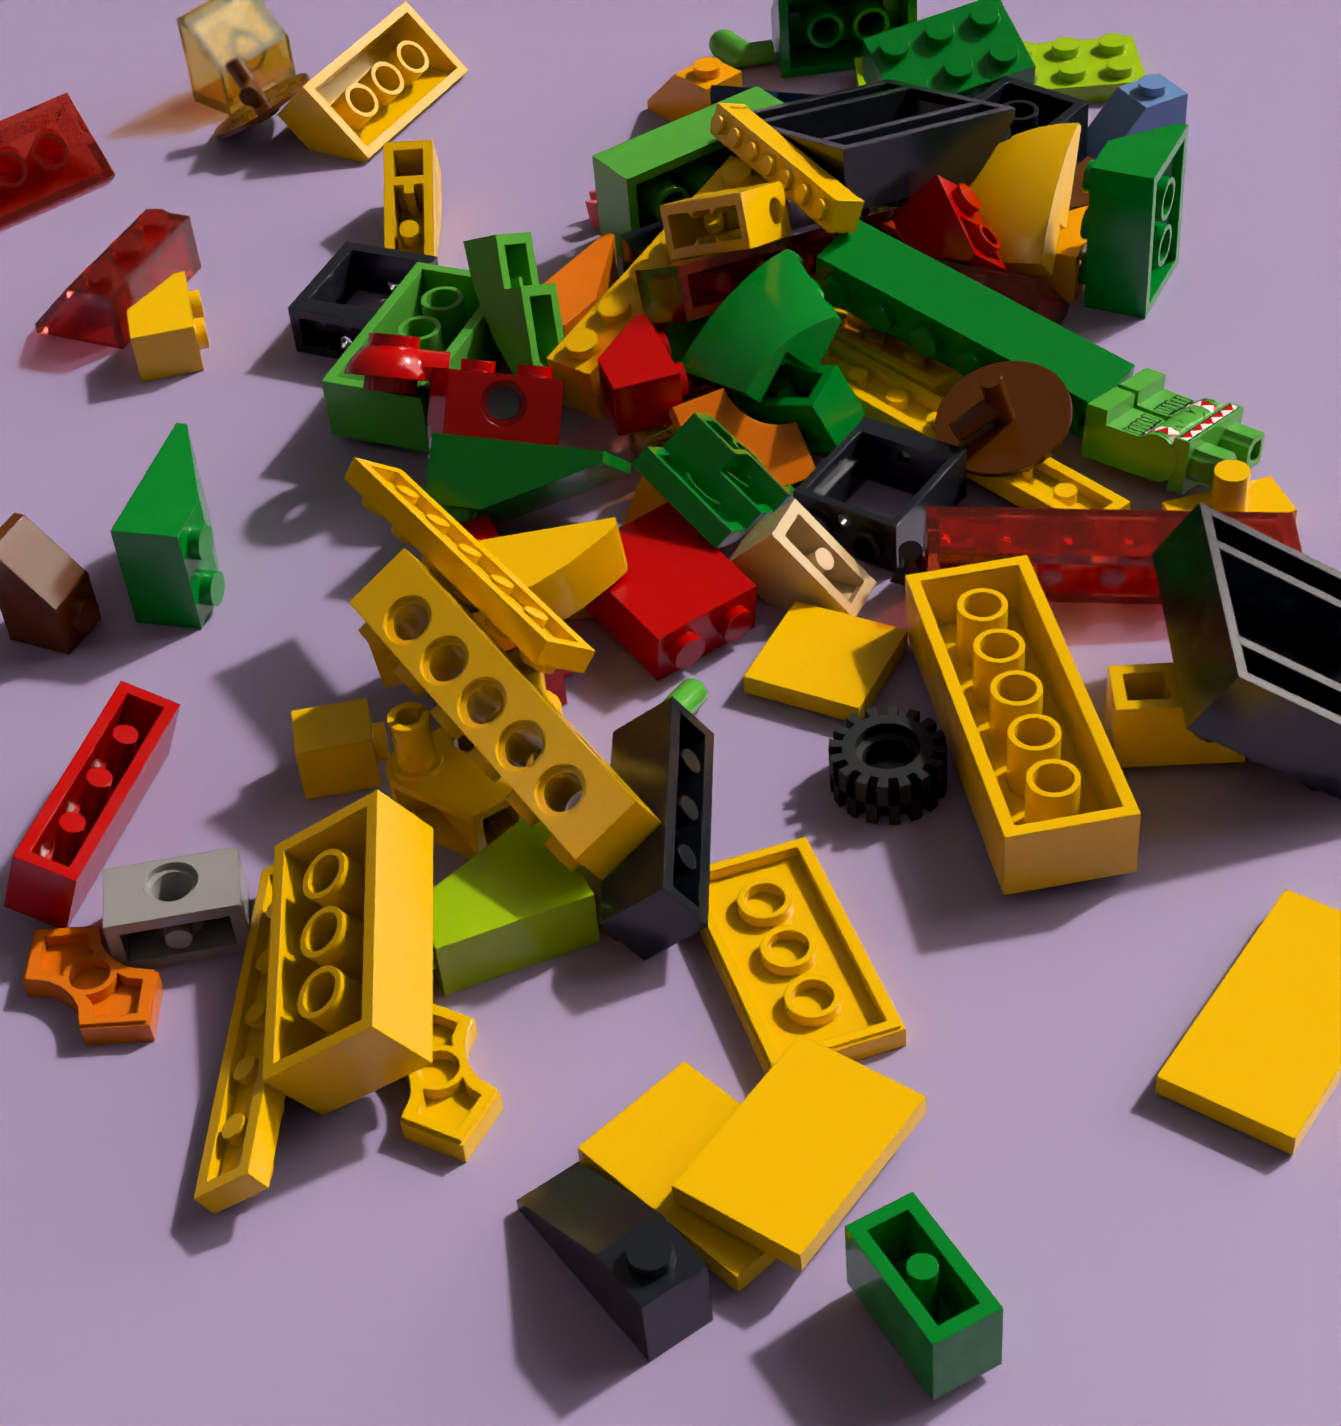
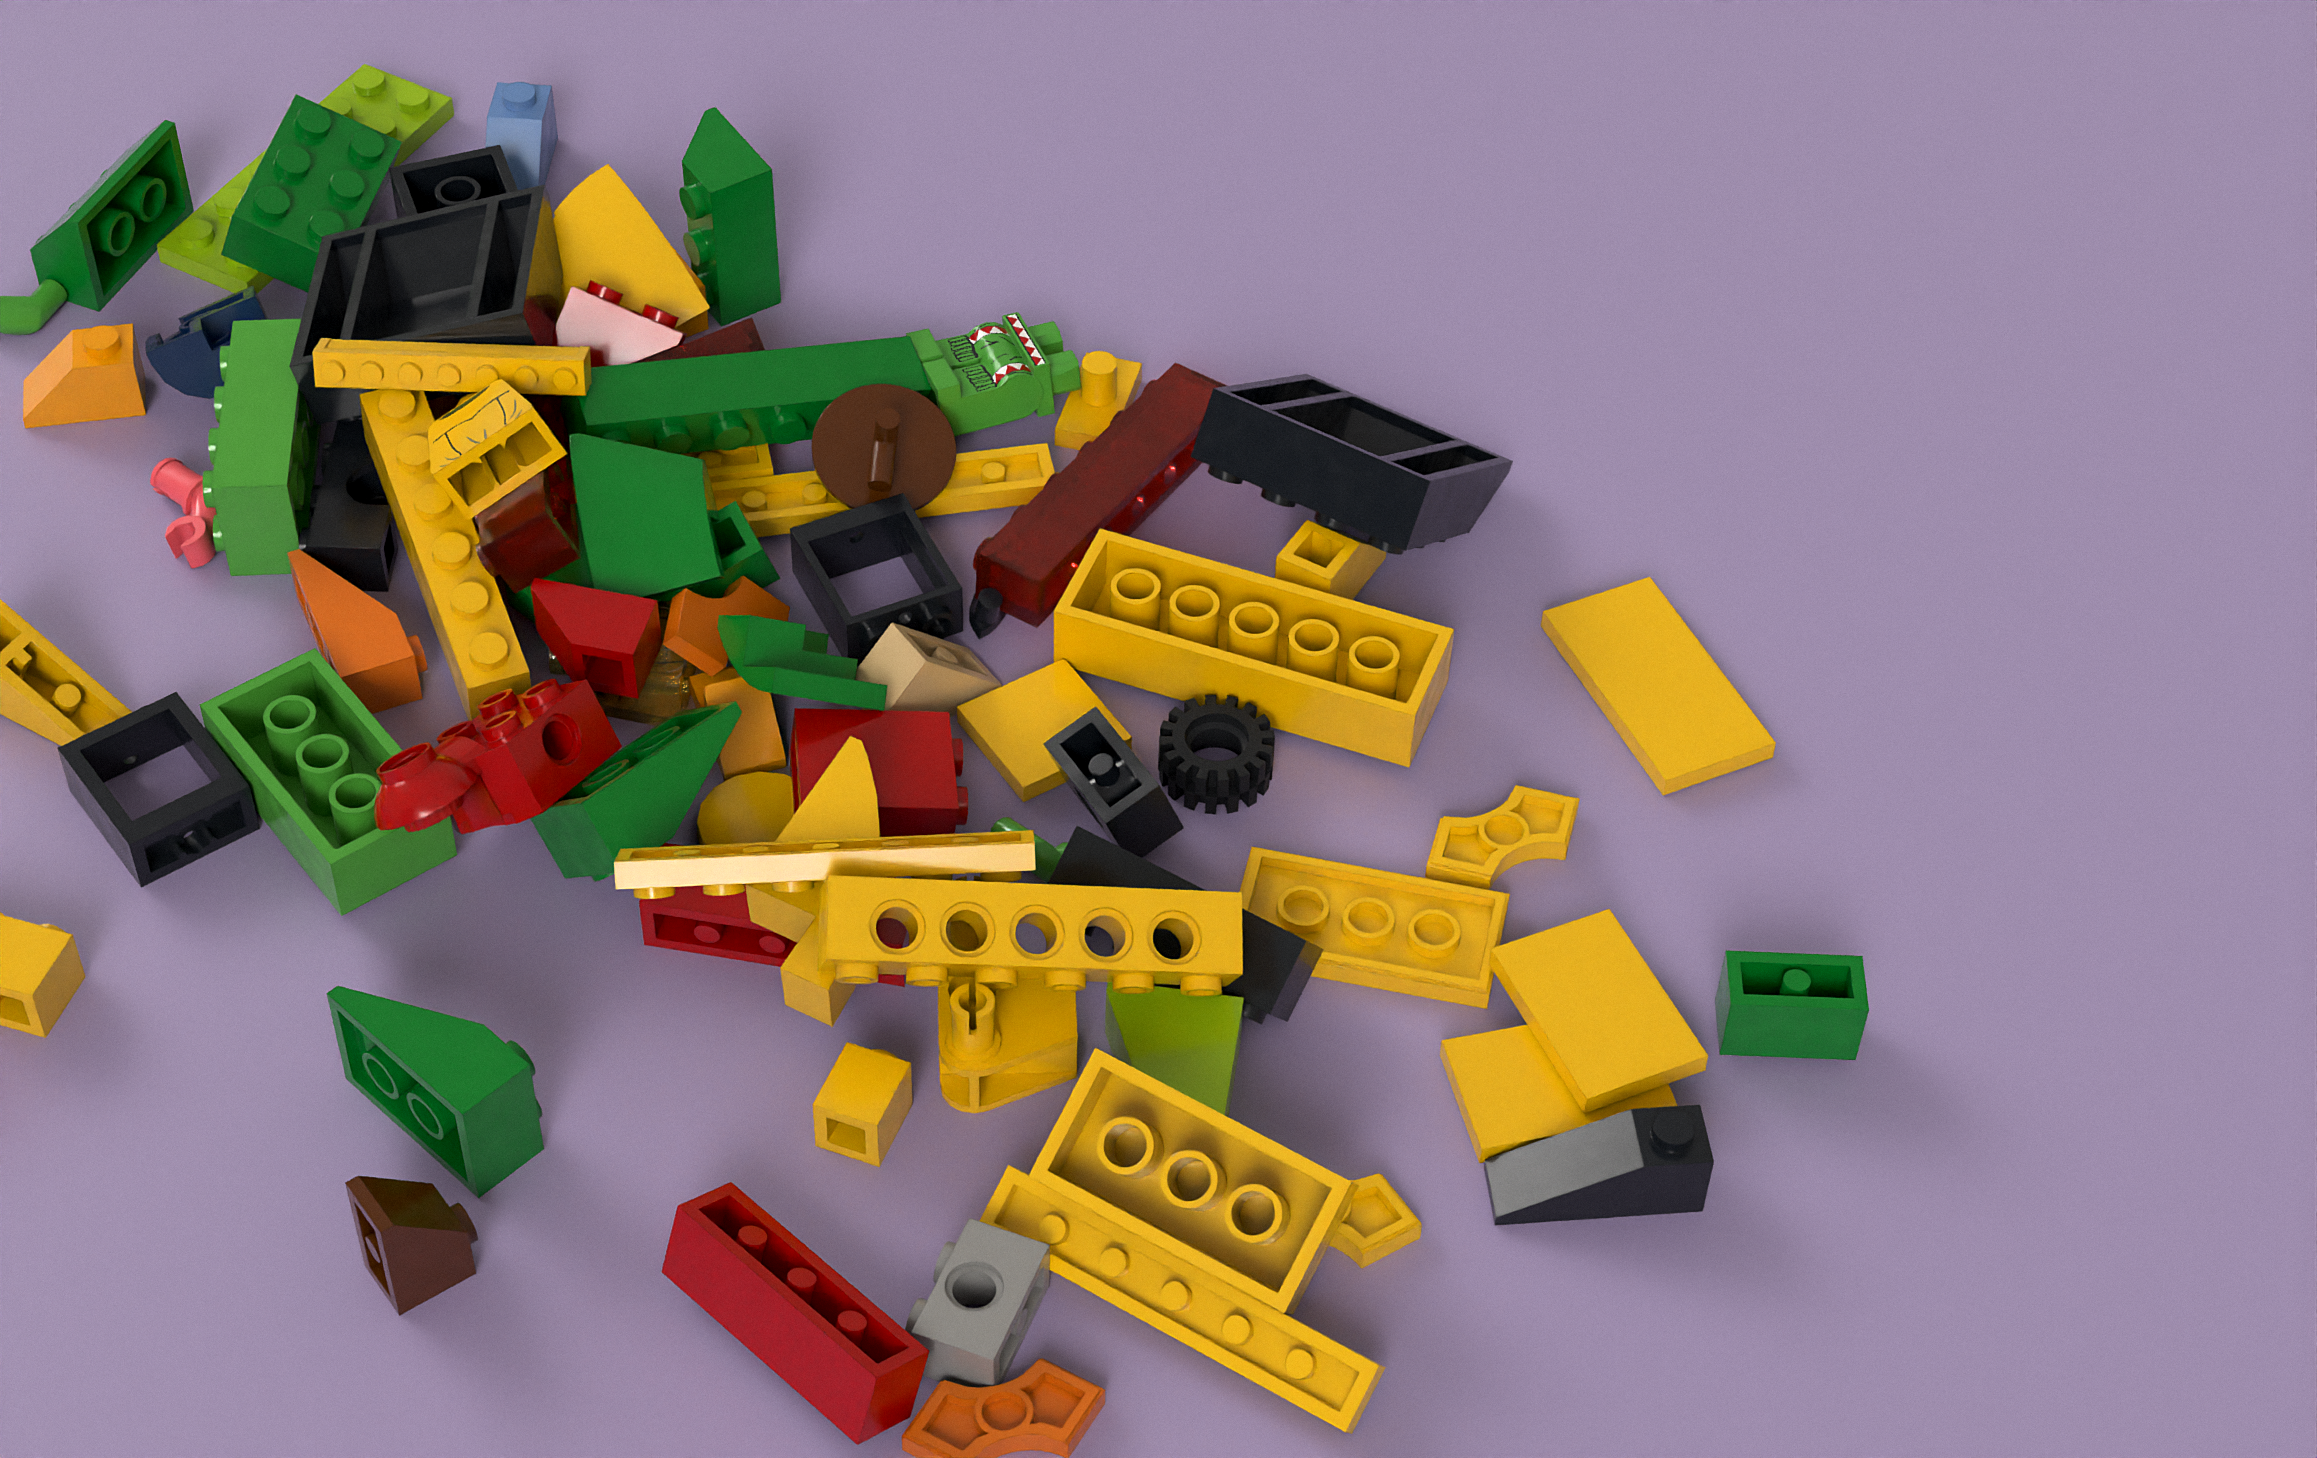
camera: 65 degrees left, 5 degrees up
(516, 307) = (372, 664): bright green slope -> none
(772, 714) = (1113, 784): none -> black brick
(1007, 1008) = (1484, 846): none -> yellow tile

